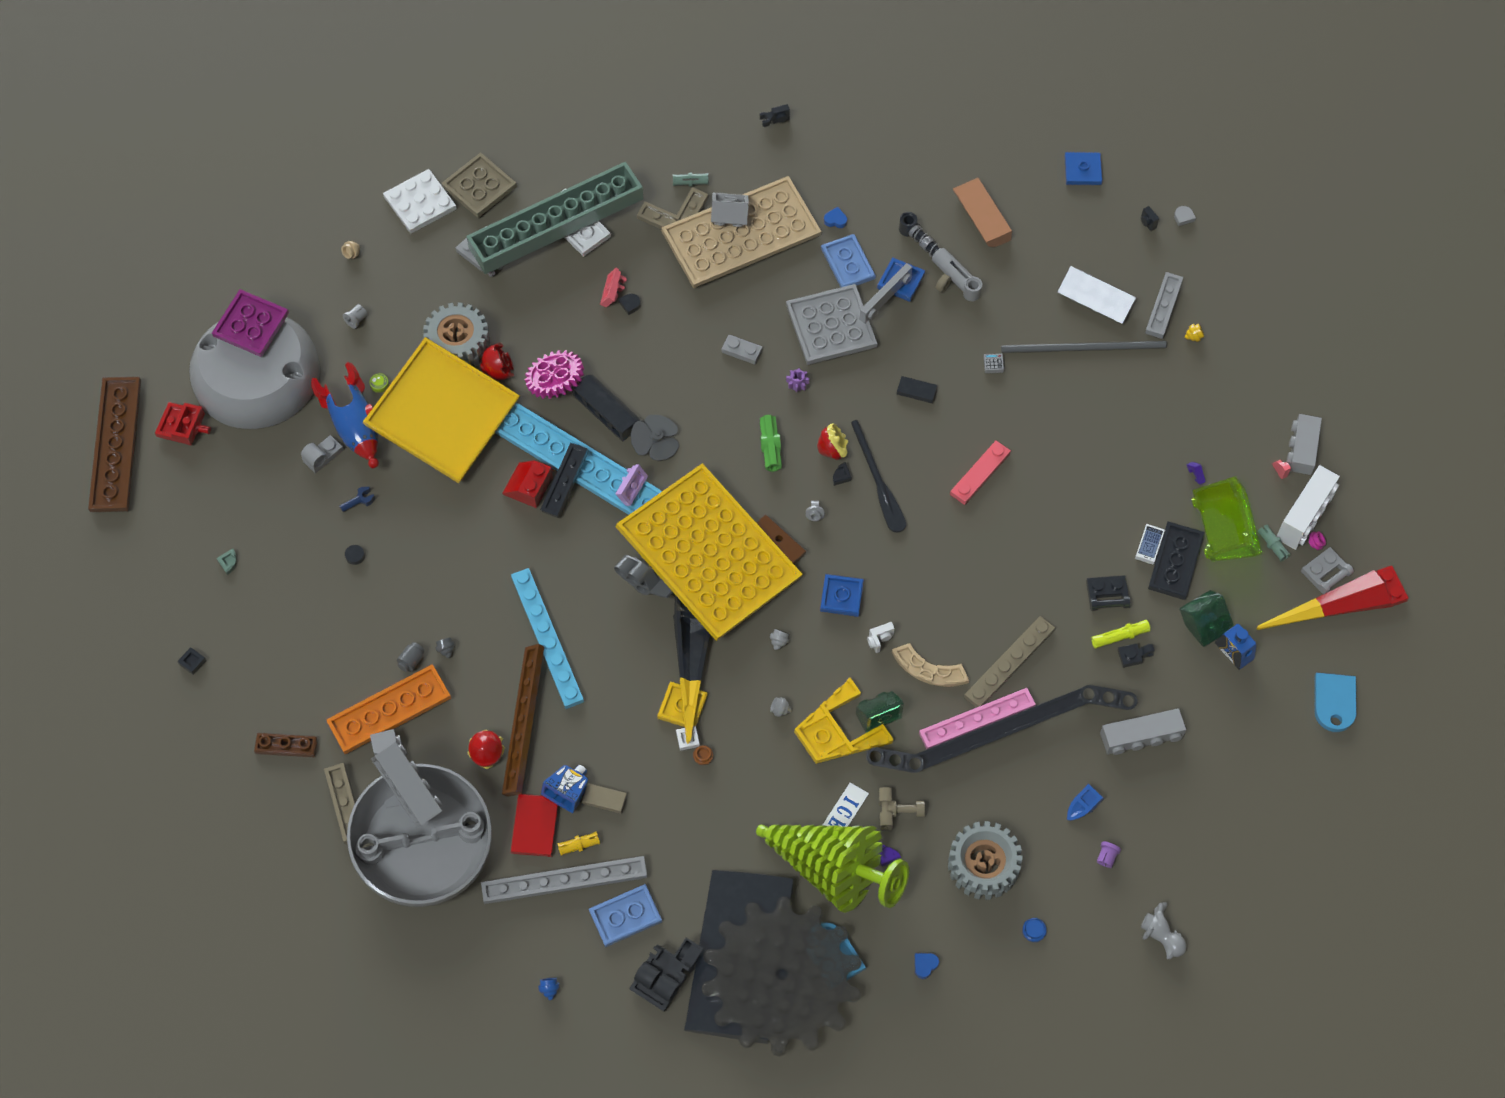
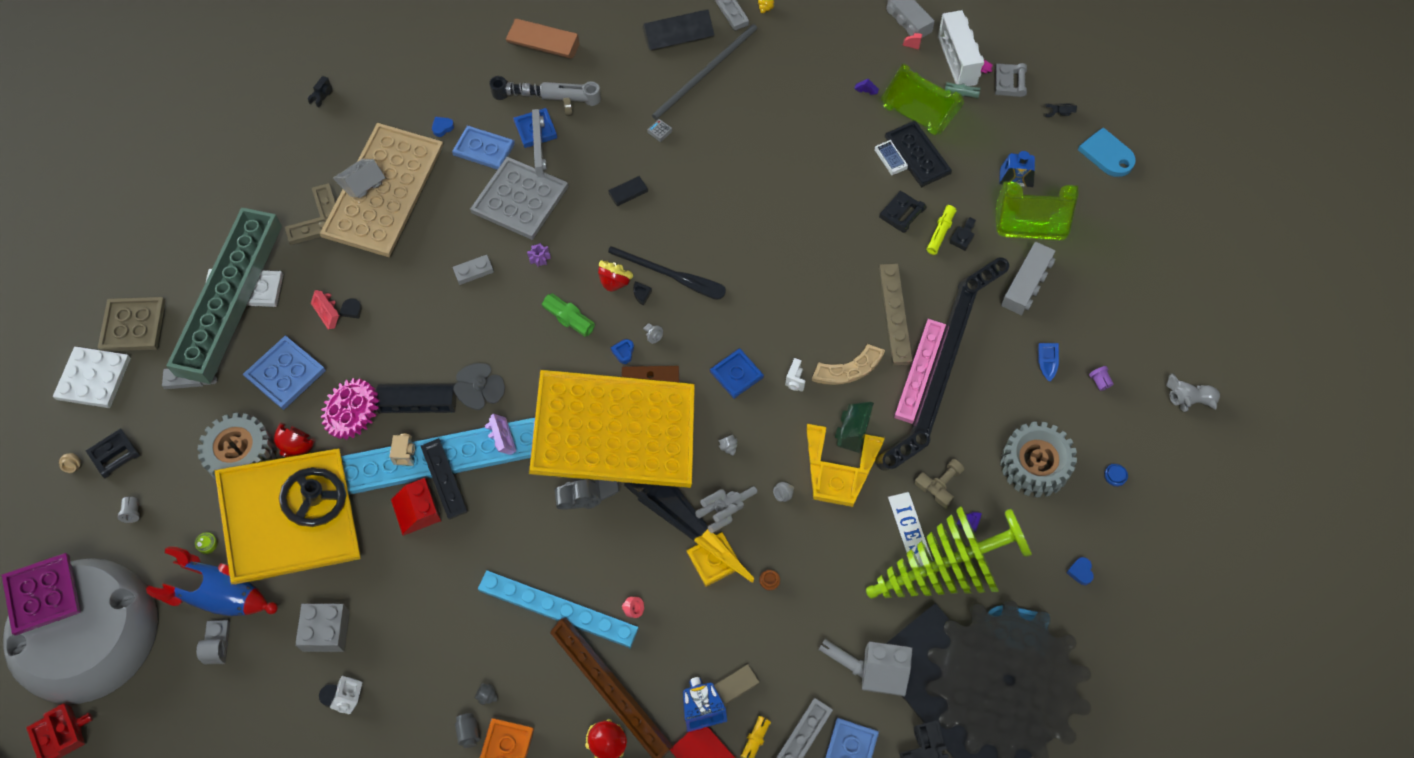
camera: 45 degrees left, 0 degrees up
(359, 499) = (286, 648): dark blue bar -> none
(363, 563) = (346, 695): none -> white bracket
(382, 262) = (108, 449): none -> black plate
(392, 506) = (322, 628): none -> light grey brick
(468, 411) = (312, 495): none -> black piece
(540, 309) = (284, 372): none -> medium blue plate
(557, 434) = (402, 449): none -> tan brick
(594, 683) = (633, 607): none -> coral tile
(681, 736) = (743, 583): white plate -> none
(695, 867) = (843, 658): none -> light grey pin
(703, 179) = (312, 177): sand green pin -> none
(708, 883) = (886, 668): none -> light grey slope
(726, 675) = (724, 505): none -> light grey plant
(781, 505) = (623, 351): none -> blue tile
(980, 472) = (732, 208): coral plate -> none
(1205, 692) = (1035, 215): none -> clear neon green windscreen
(1207, 617) = (980, 170): clear green slope -> none
(1339, 631) = (1064, 109): none -> black plate
(1369, 592) = (1048, 72): red plate -> none

